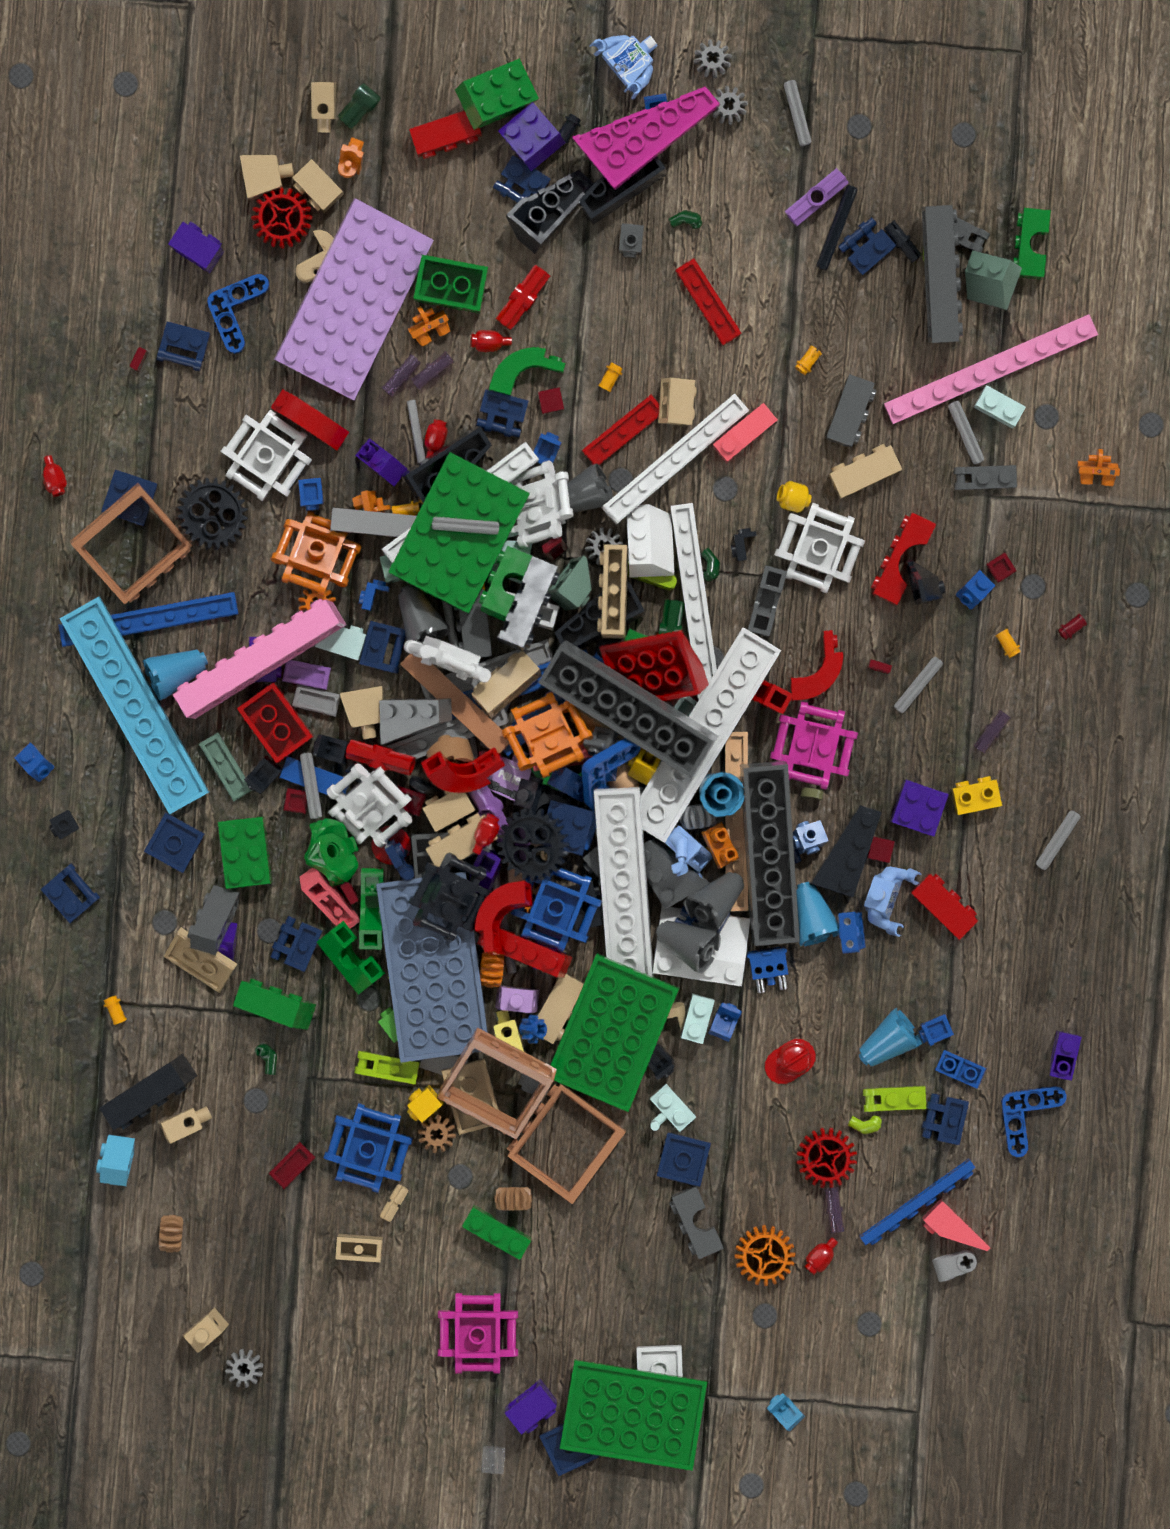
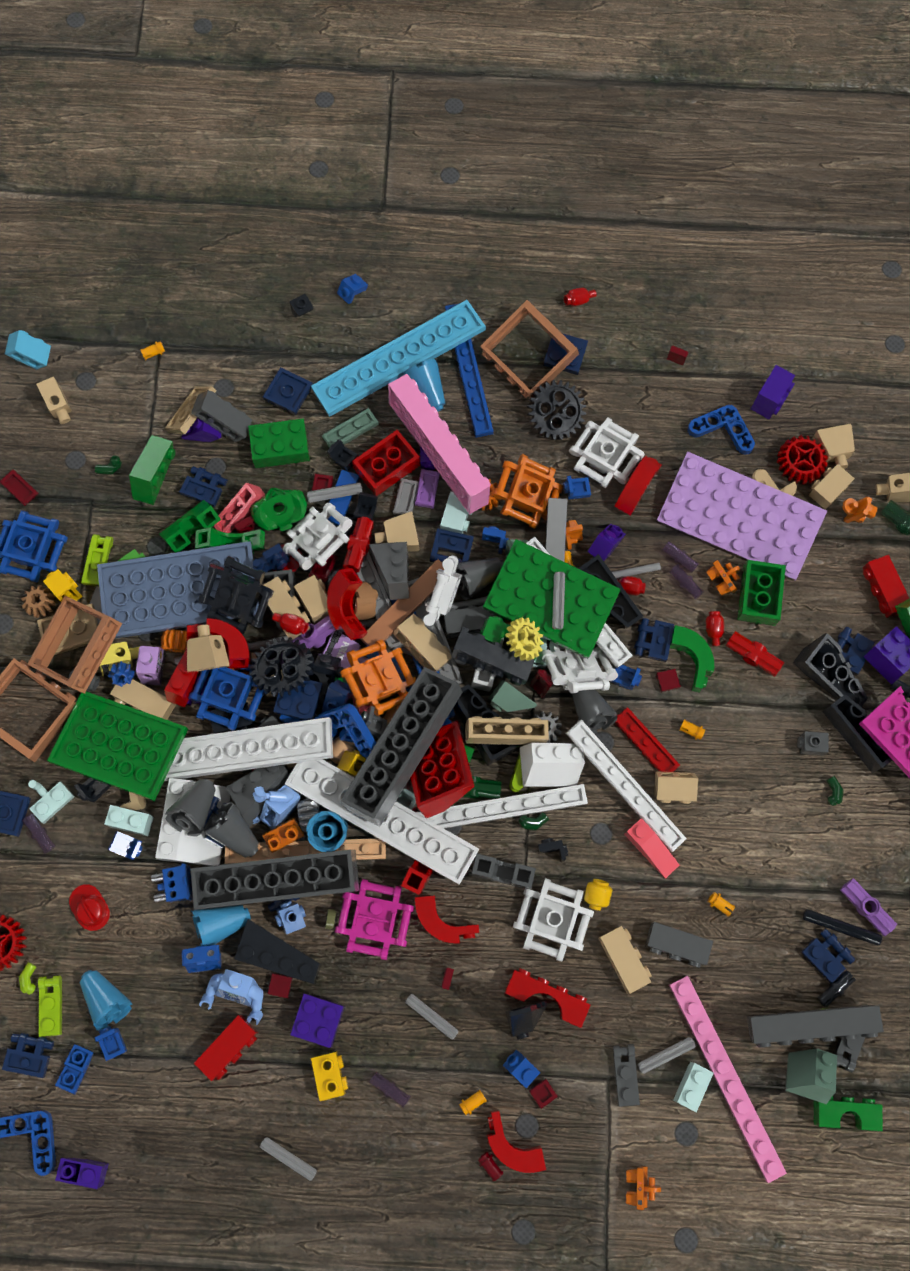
camera: 85 degrees right, 15 degrees down
(64, 898) = (244, 313): dark blue plate -> none
(148, 1092) = (83, 375): black wedge -> none
(183, 338) = (696, 390): dark blue plate -> none
(492, 863) = (266, 633): dark purple slope -> none
(511, 567) = (524, 639): none -> light yellow gear
(516, 929) = (206, 651): none -> tan torso
(708, 302) = (764, 813): red tile -> none
(708, 1119) = (38, 833): none -> clear purple pin
(1066, 597) = (522, 1160): none -> red arch

